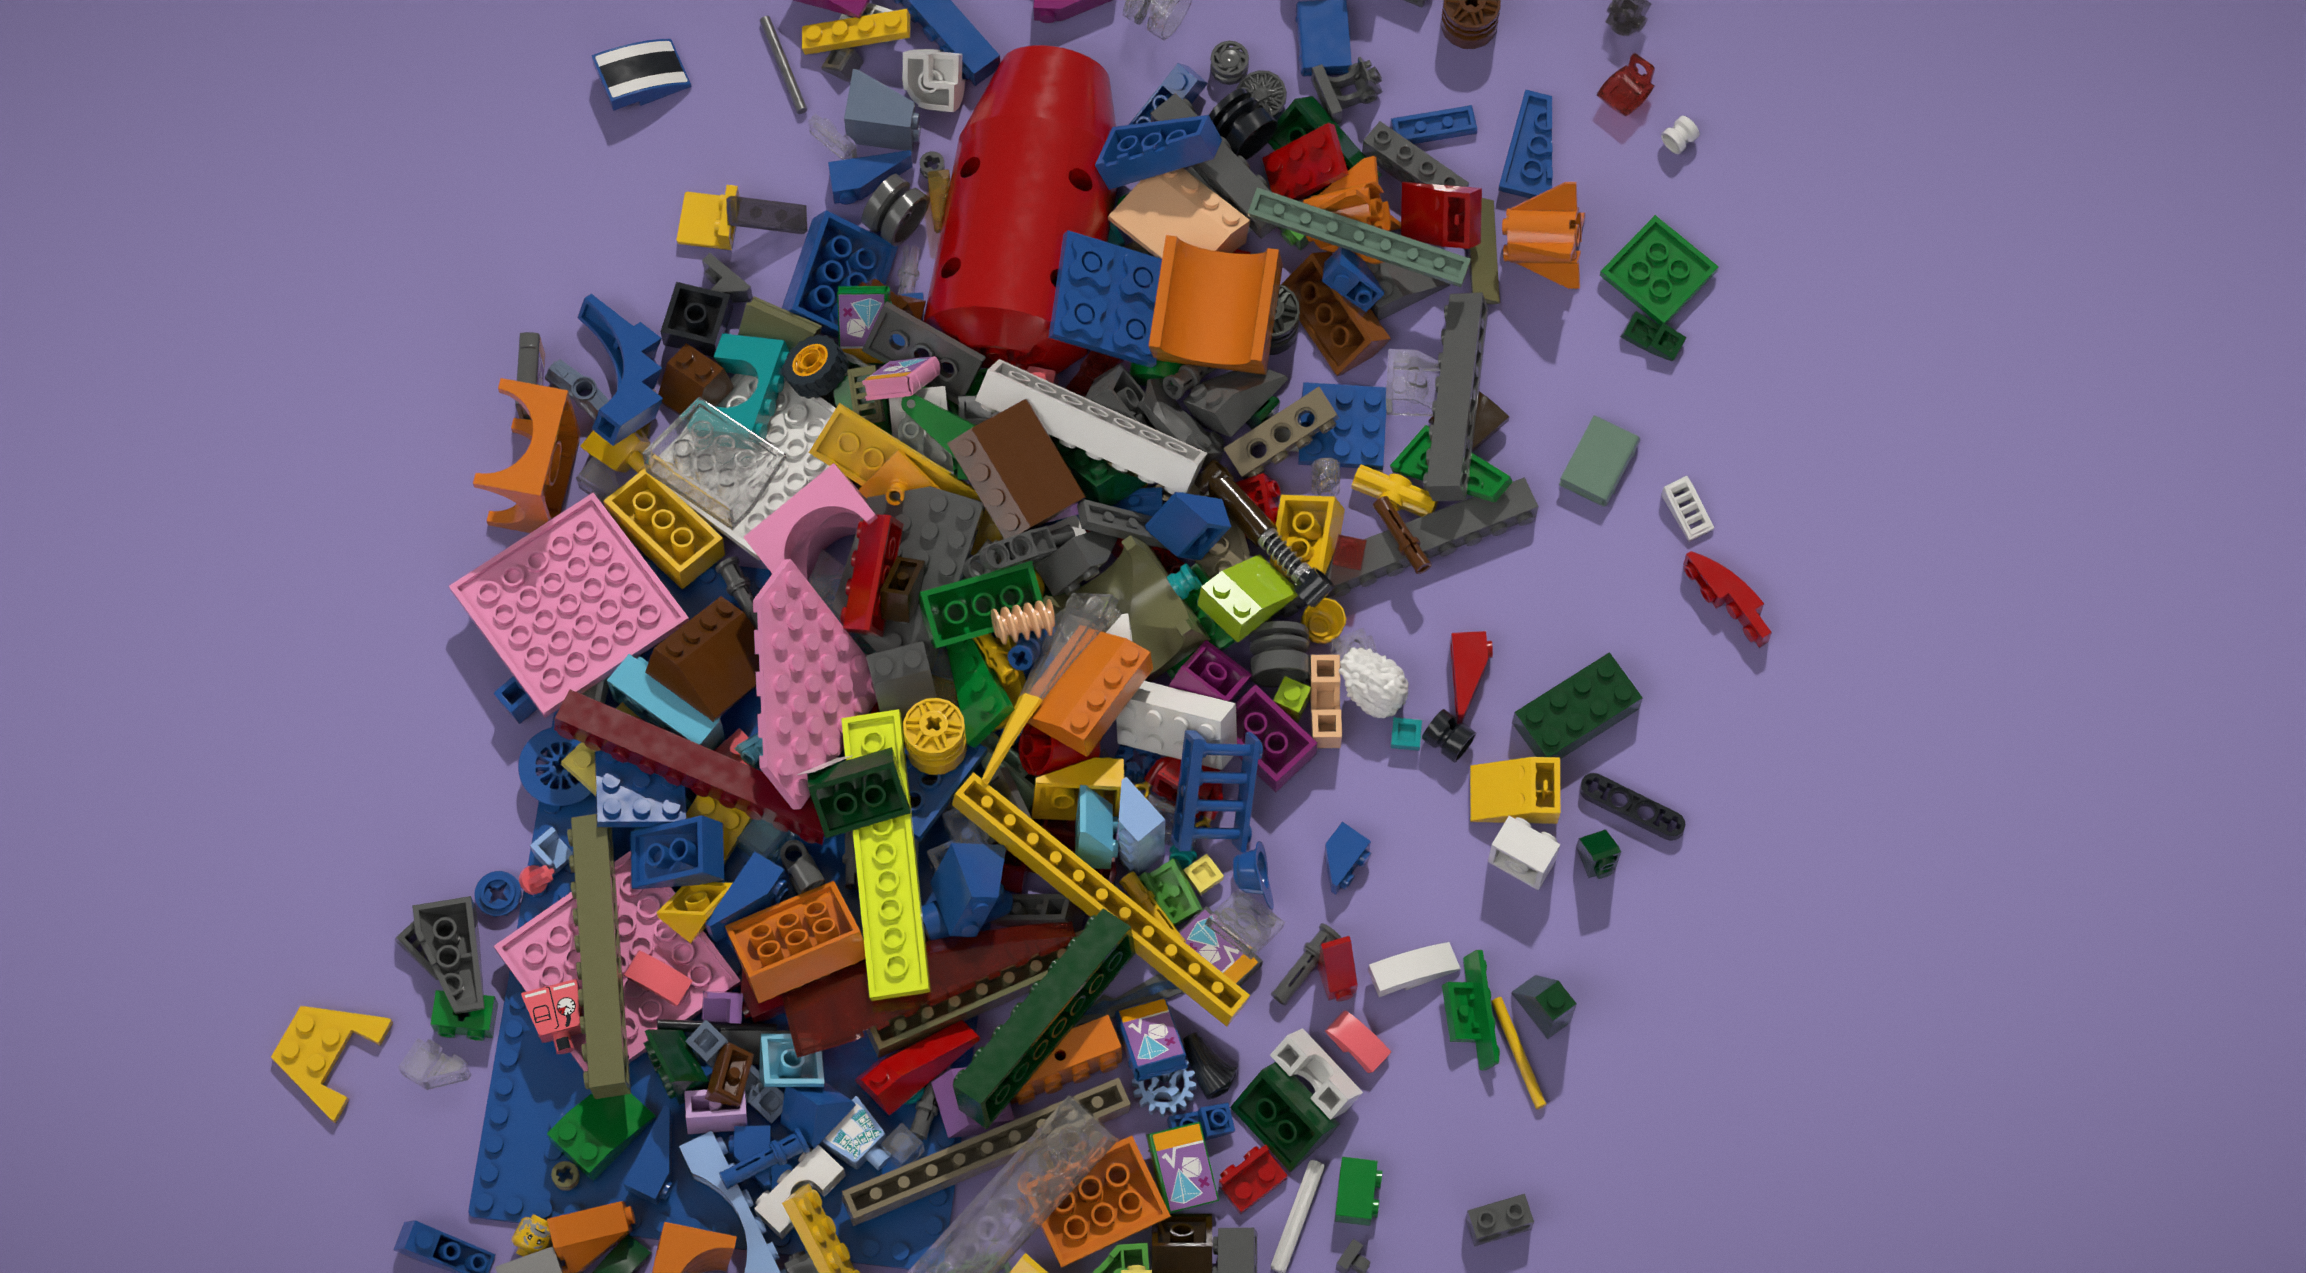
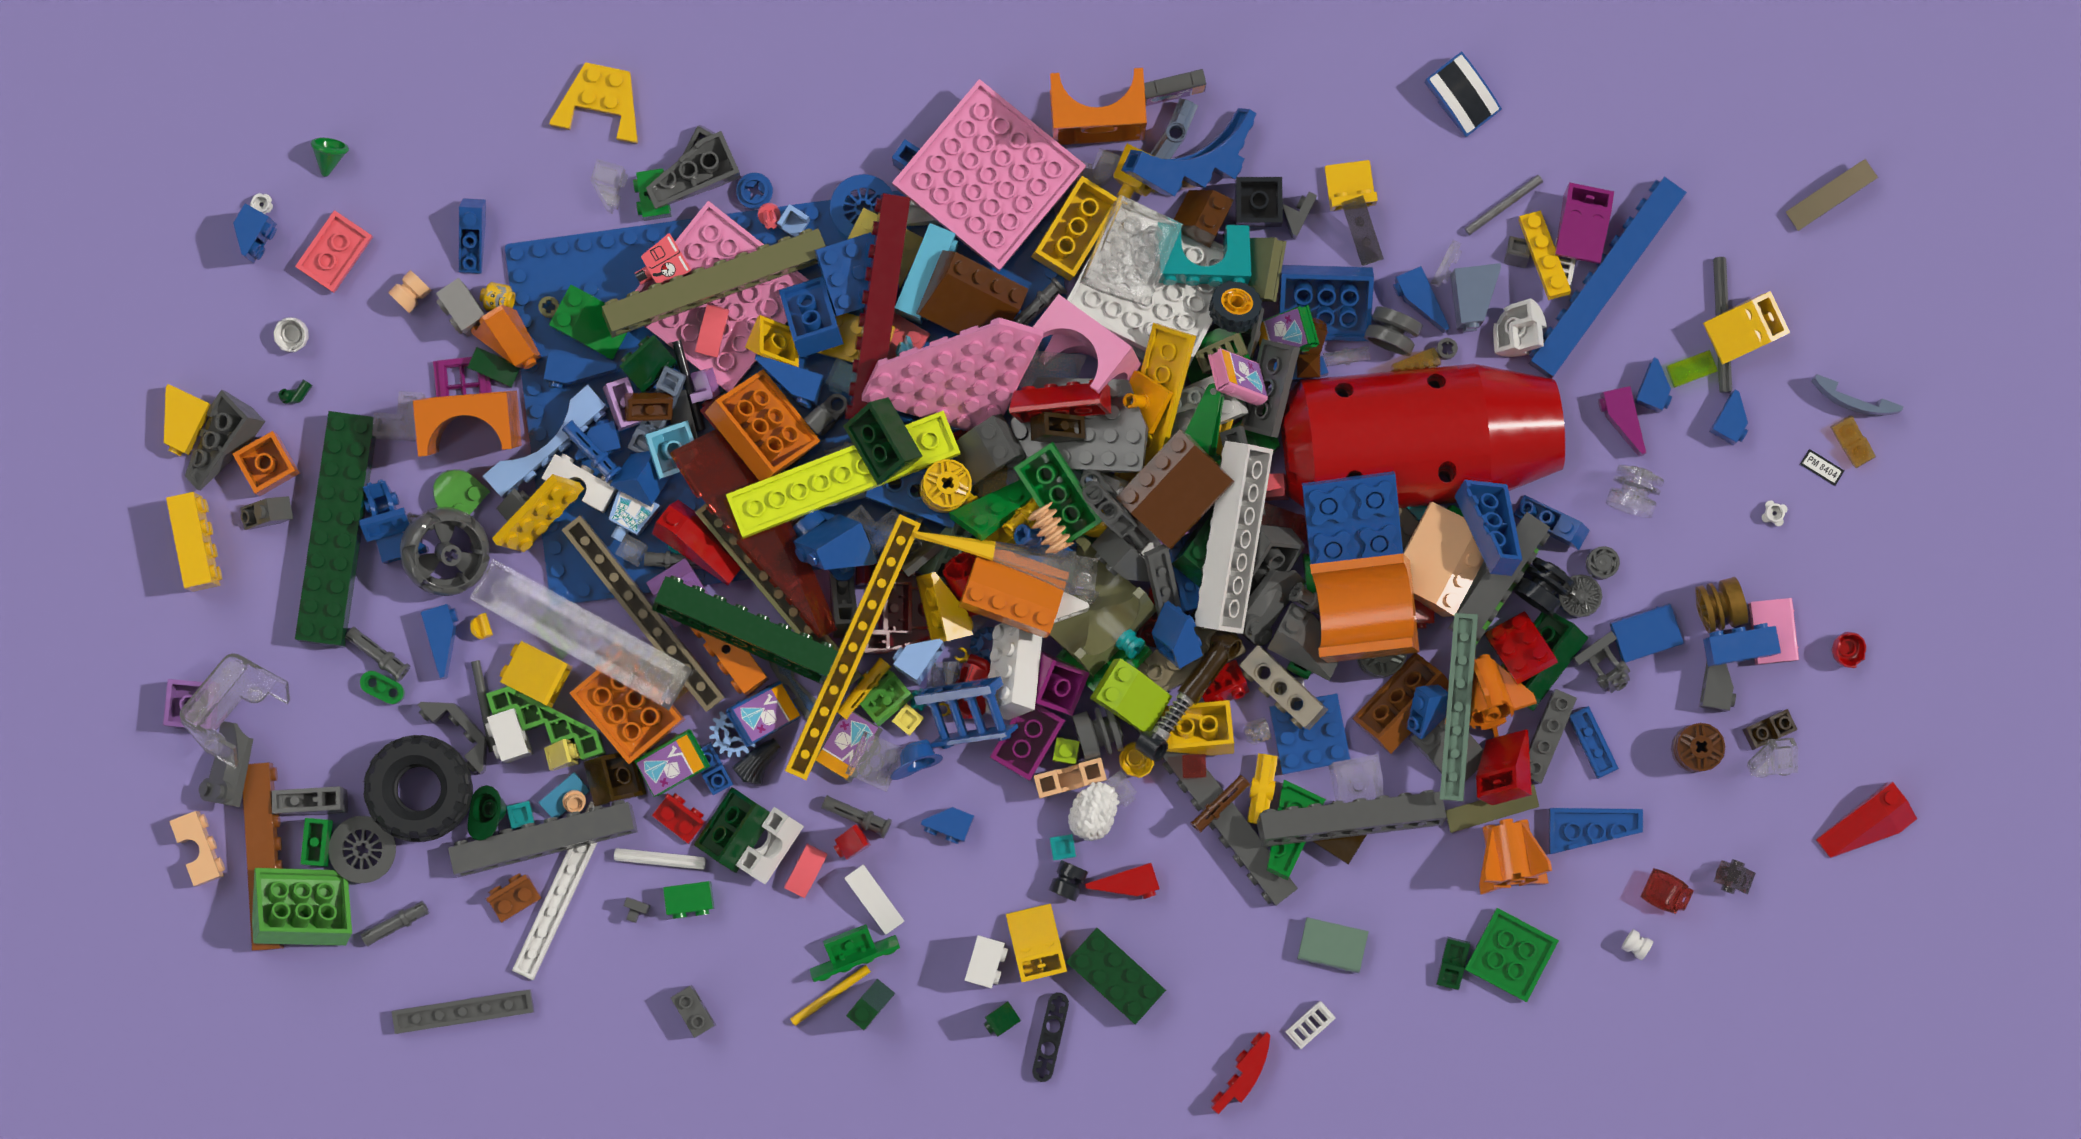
camera: 75 degrees right, 15 degrees up
(824, 765) = (897, 408): white sticker -> none
(1095, 829) = (911, 628): medium azure slope -> none

